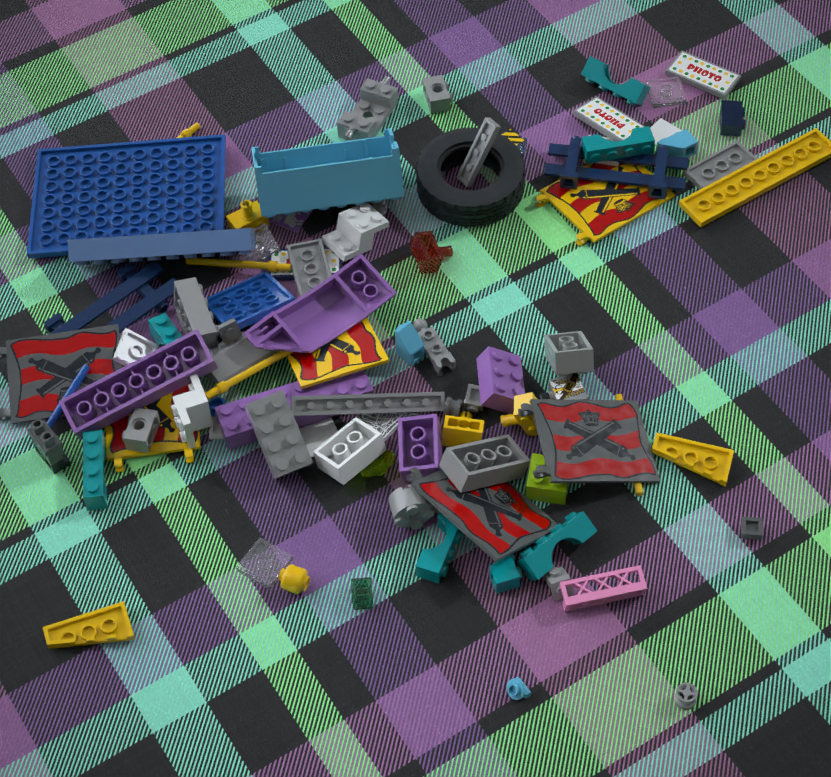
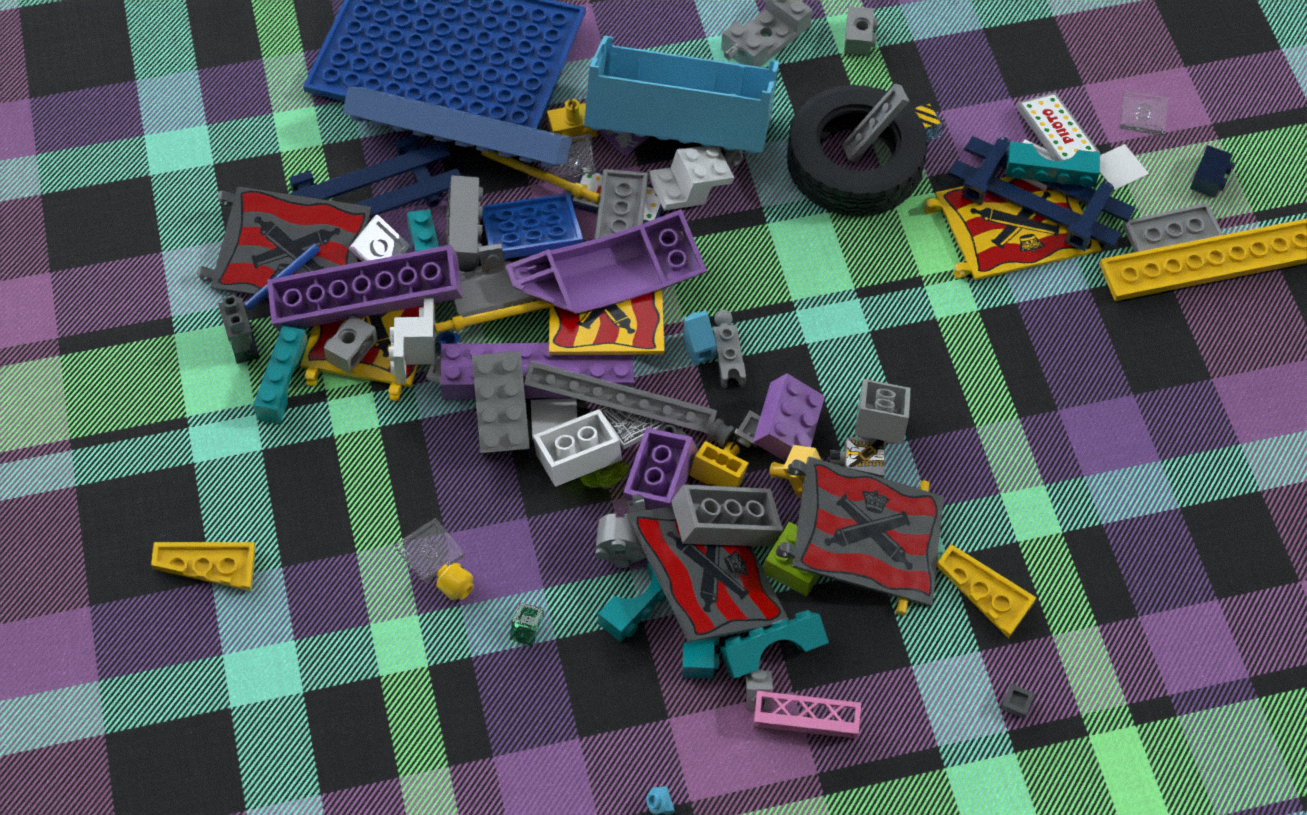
camera: 15 degrees right, 5 degrees up
(427, 253) = (766, 230): clear red brick -> none
(598, 72) = (1068, 62): teal arch -> none
(680, 144) = (1131, 187): medium azure slope -> none
(703, 74) = (1201, 103): tile -> none

